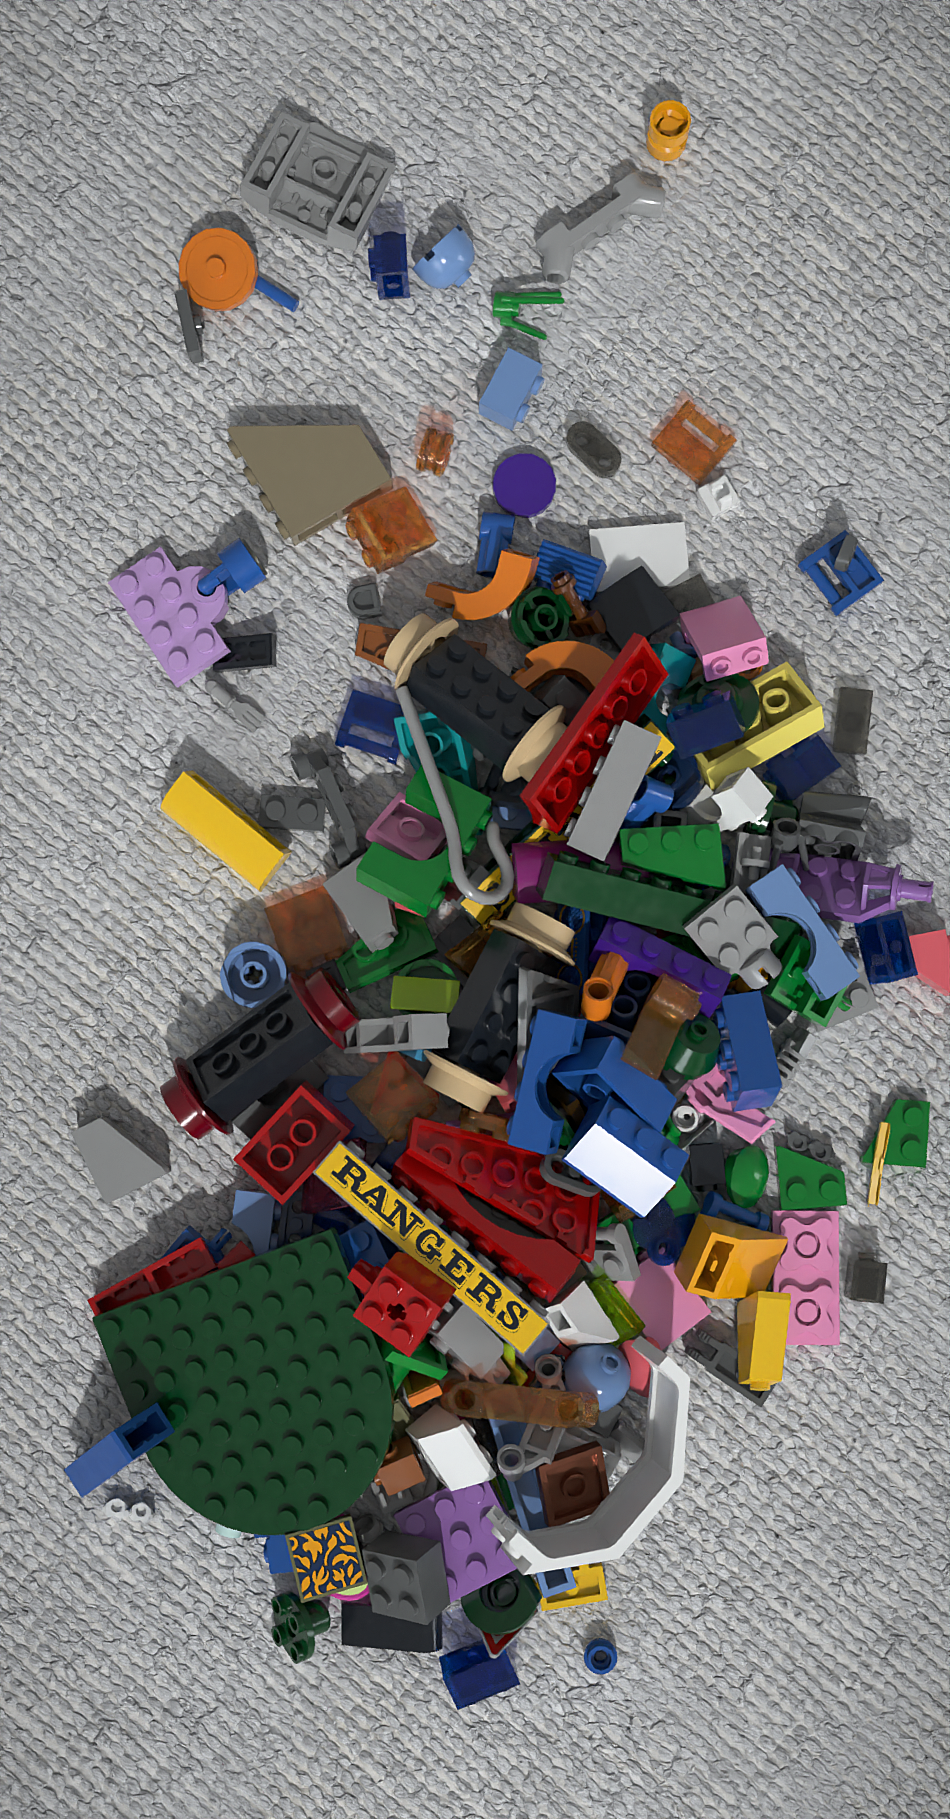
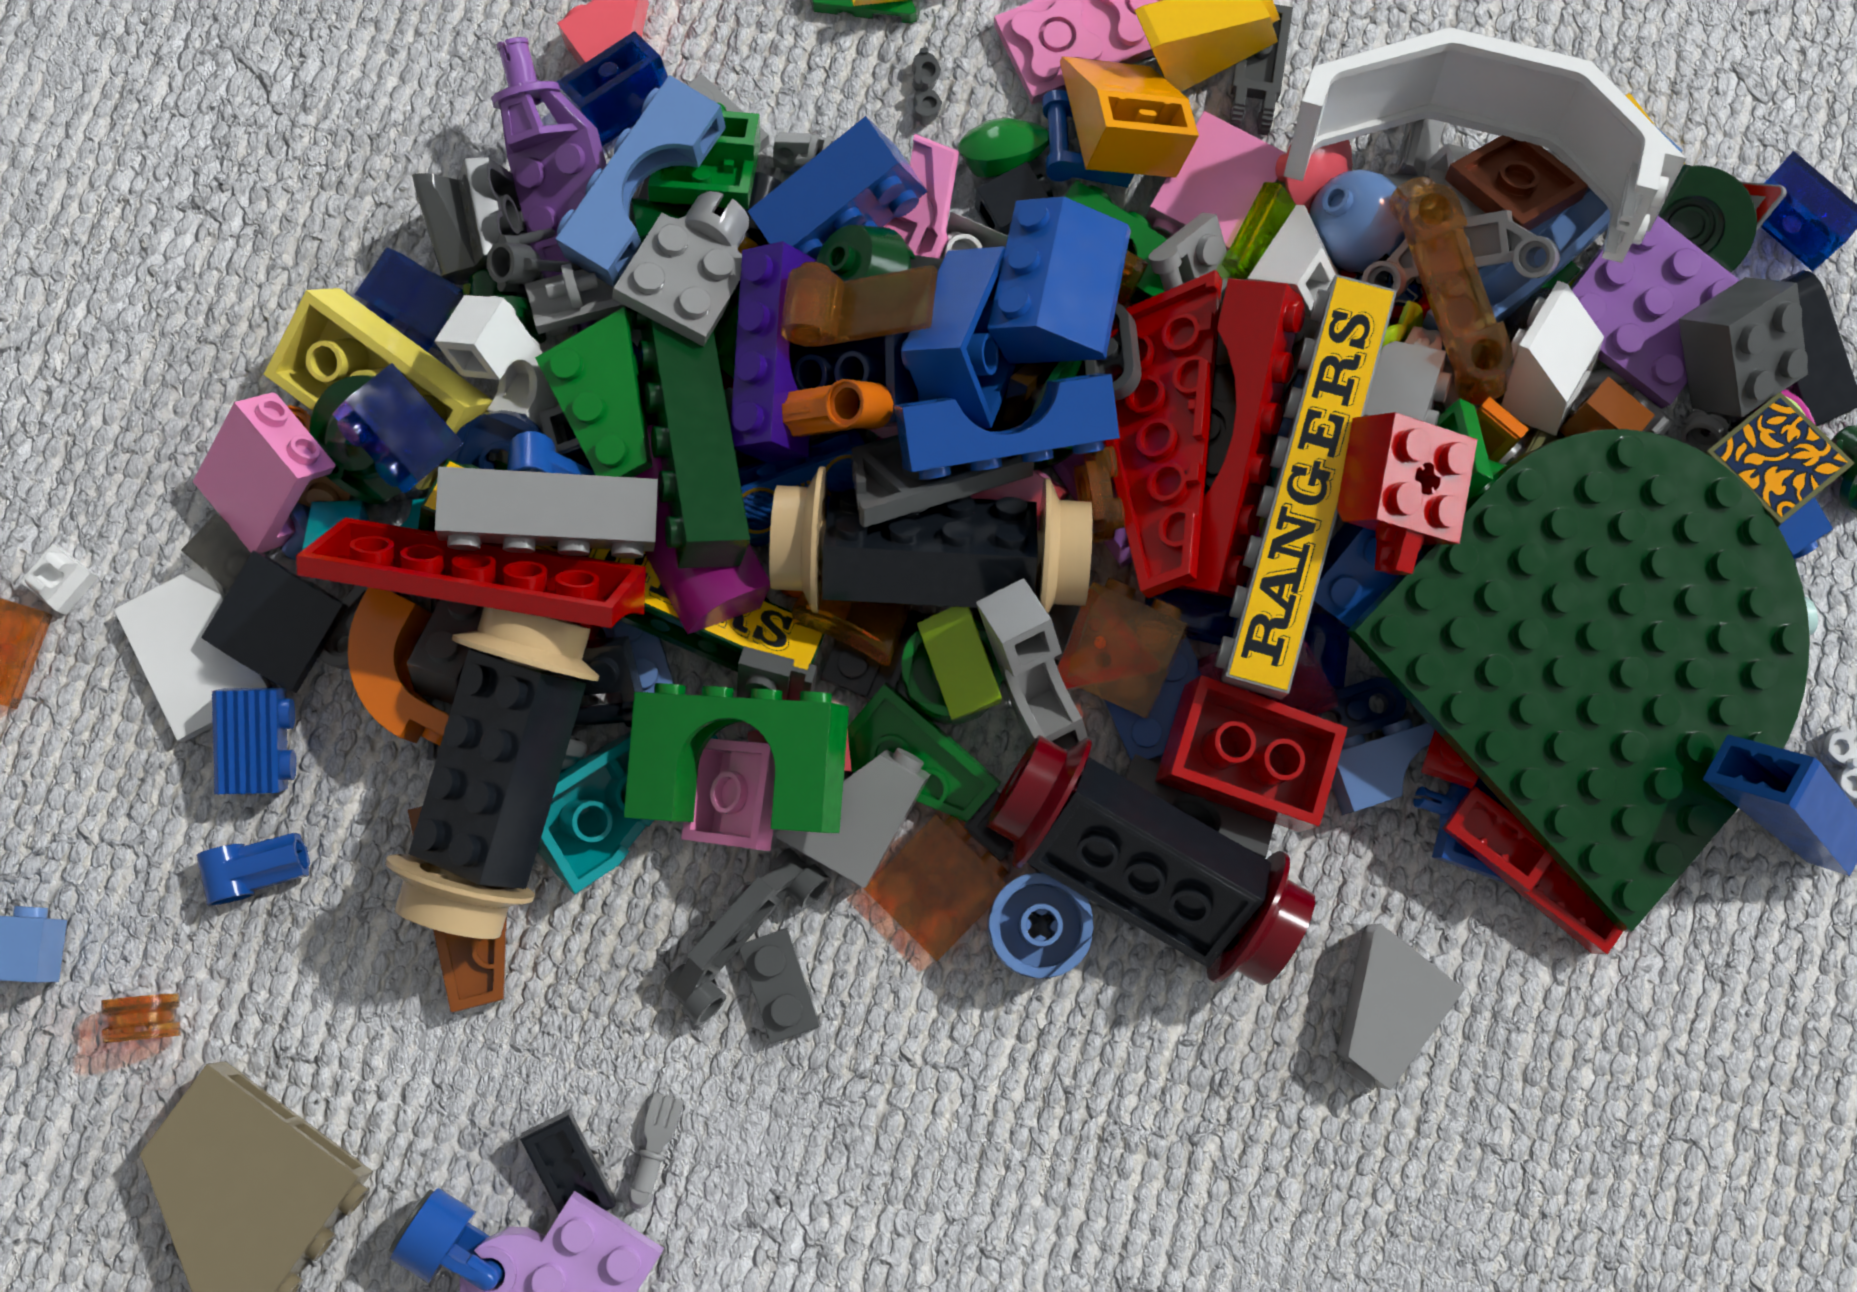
camera: 120 degrees left, 5 degrees down
(224, 829) = (846, 1074): yellow brick -> none
(364, 602) = (417, 1023): dark grey tile -> none
(374, 715) = (583, 930): clear blue plate -> none
(389, 529) = (290, 1034): clear orange plate -> none
(448, 818) = (686, 736): light grey piece -> none
(512, 577) = (342, 832): orange arch -> none
(524, 485) = (145, 865): dark purple tile -> none
(539, 617) = (338, 749): dark green cone -> none
(581, 622) = (317, 686): reddish brown hinge -> none
(596, 449) = (48, 782): clear smoke plate -> none
(600, 1666) = (1707, 66): blue plate -> none
(663, 1227) = (1137, 202): clear blue plate -> none
(807, 1182) = (975, 72): green wing -> none
(846, 553) = (71, 358): dark grey tile -> none
(852, 721) = (317, 262): clear smoke plate -> none
(857, 580) = (95, 354): blue plate -> none

